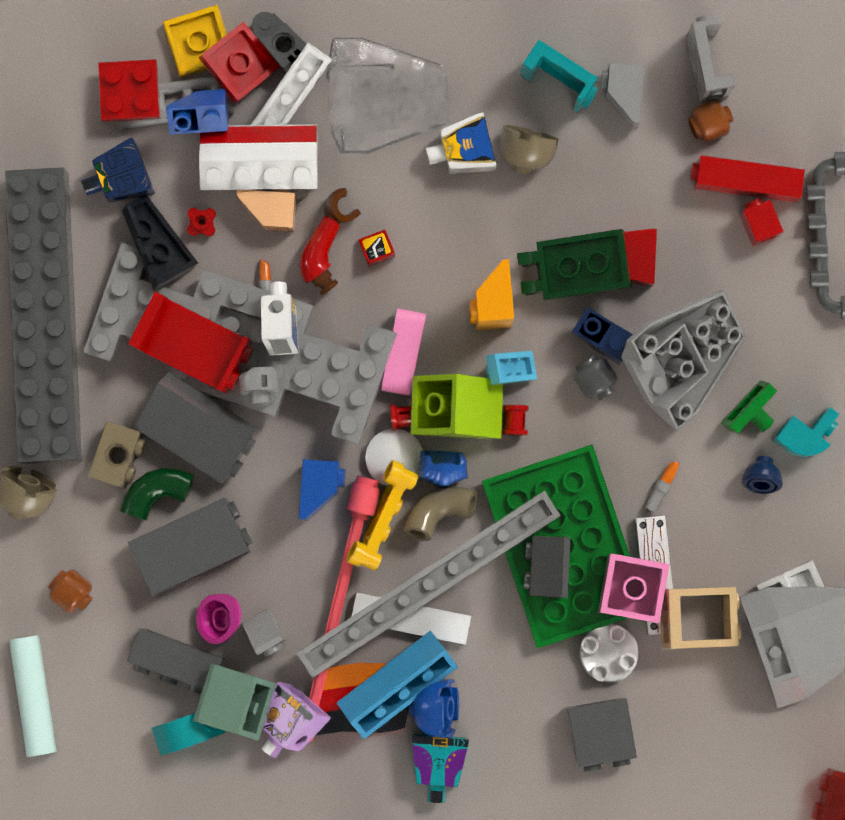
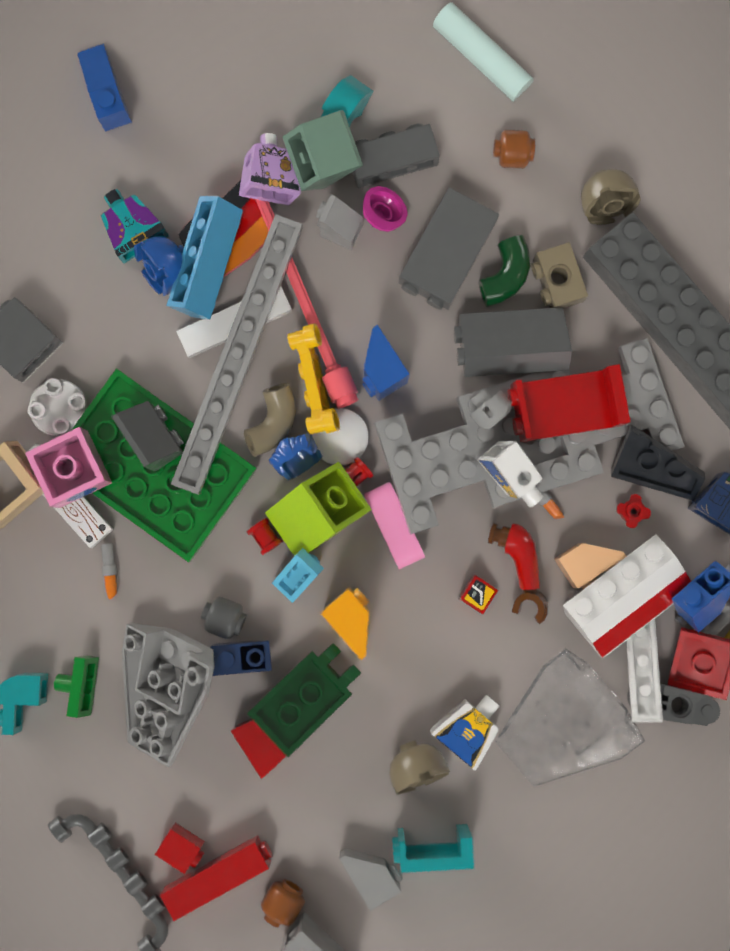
camera: 145 degrees right, 0 degrees up
(762, 476) = (32, 638): dark blue brick -> none

